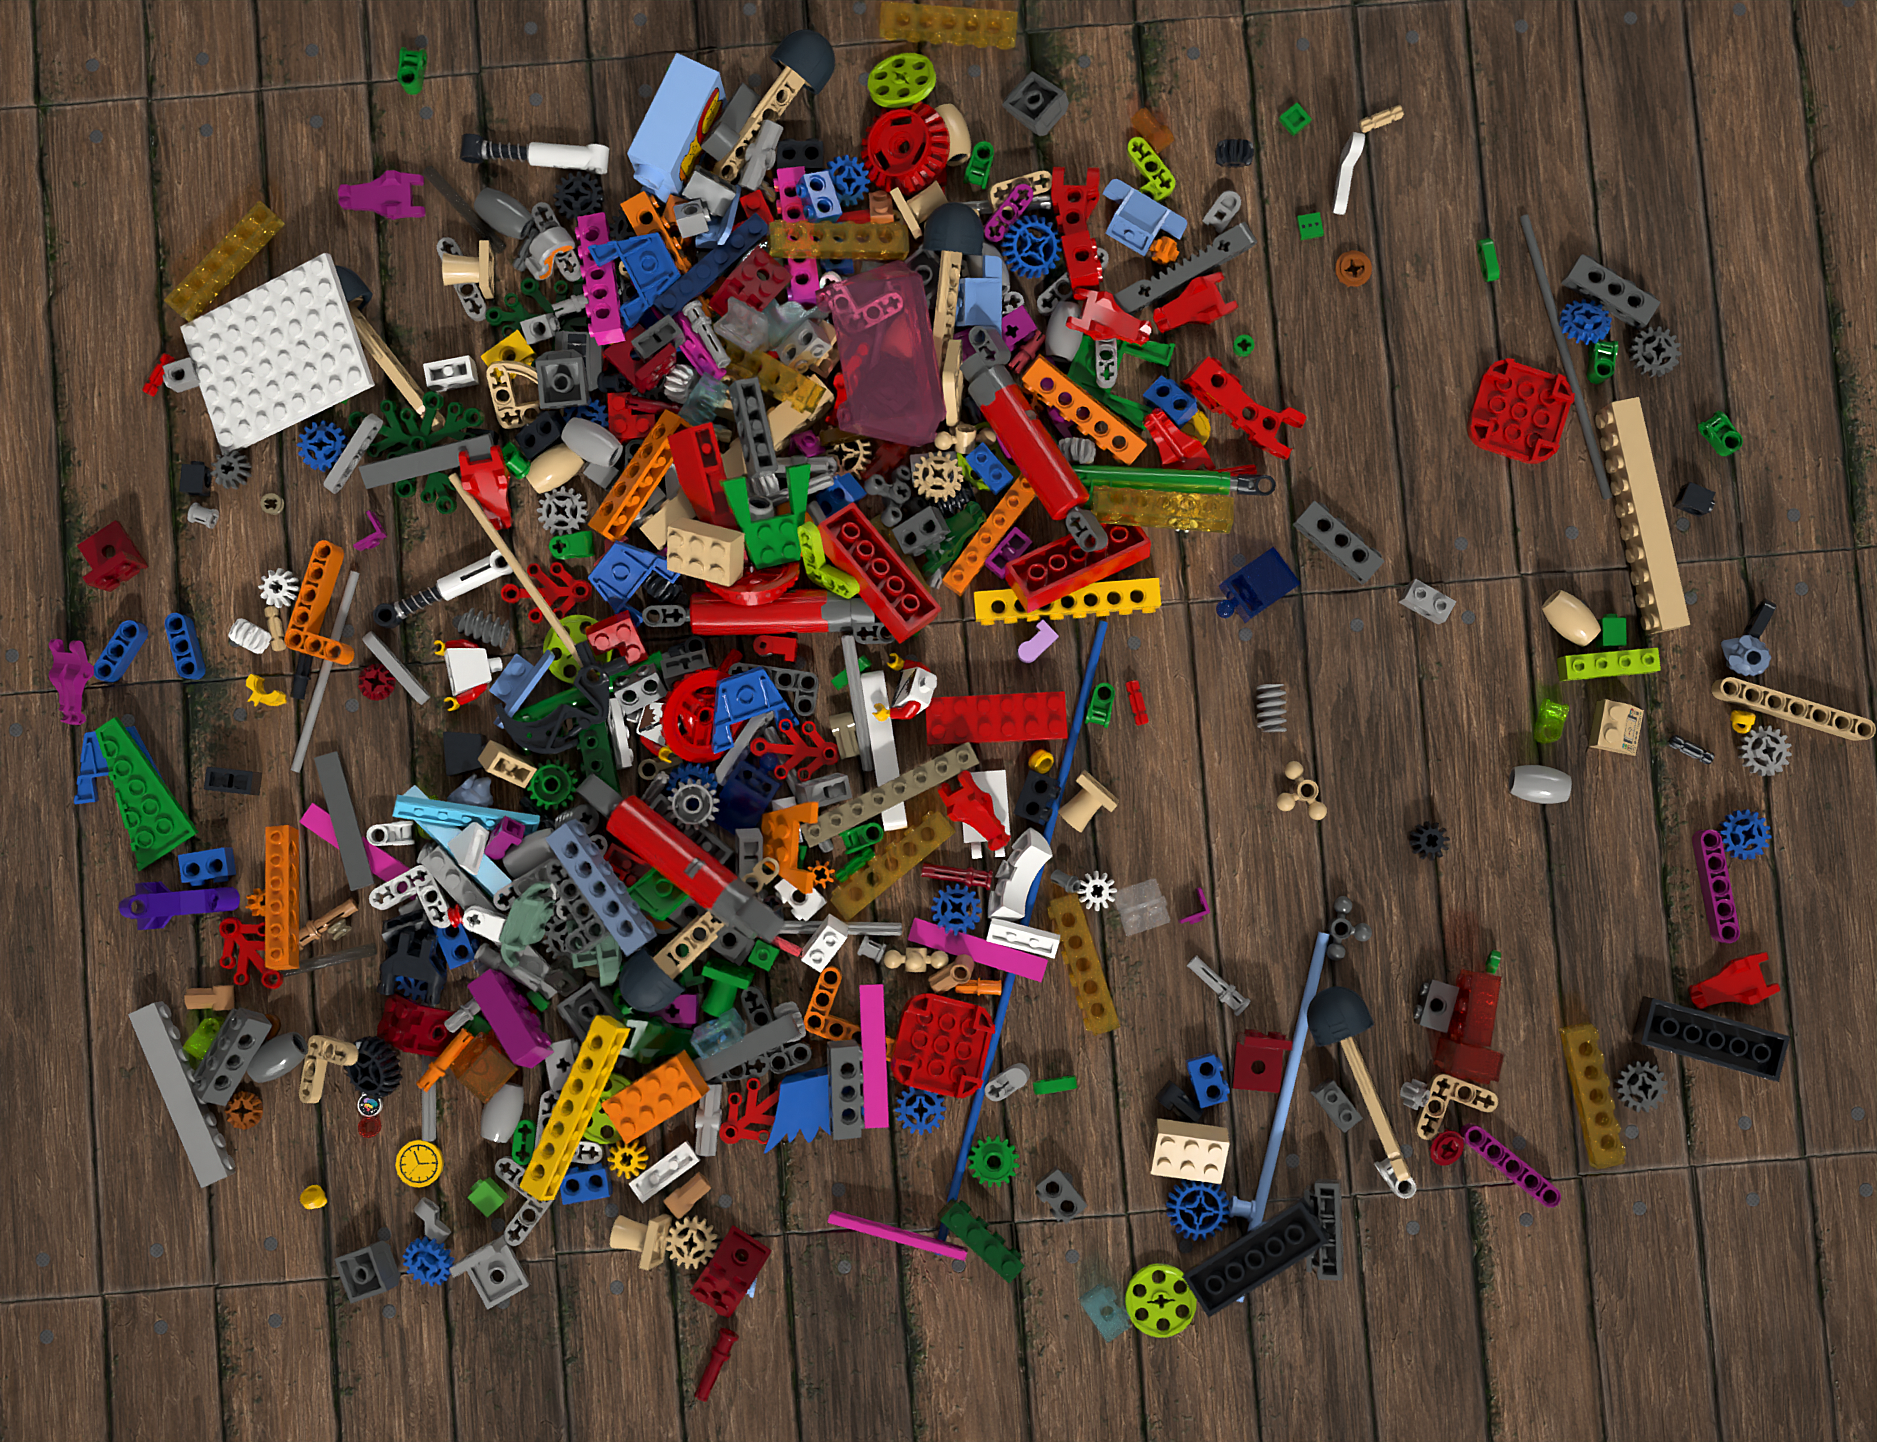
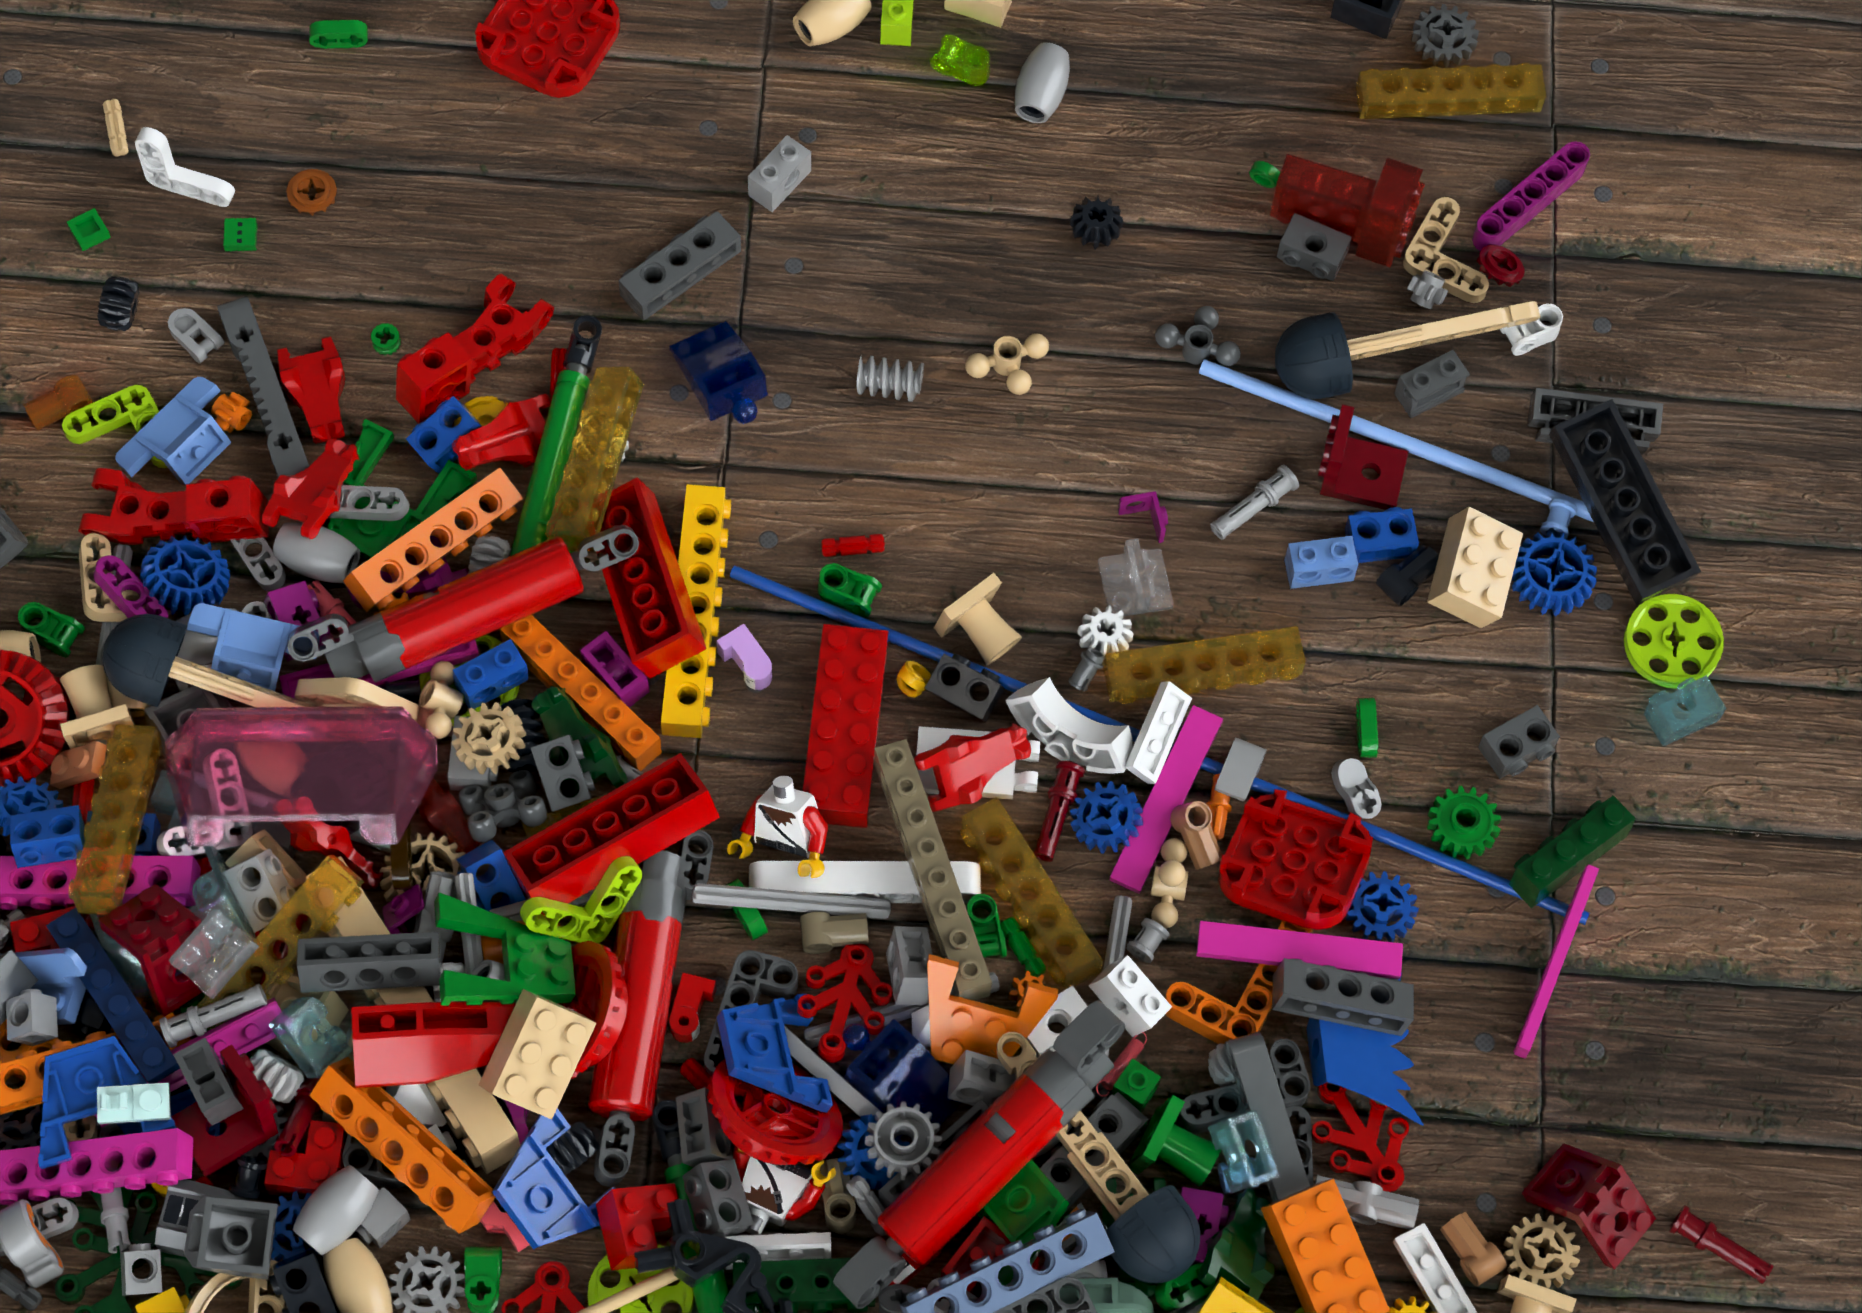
camera: 85 degrees left, 20 degrees down
(636, 296) = (133, 1103): none -> light aqua plate
(1007, 999) = (1240, 769): none -> light grey panel
(1177, 1038) = (1321, 562): none -> medium blue brick

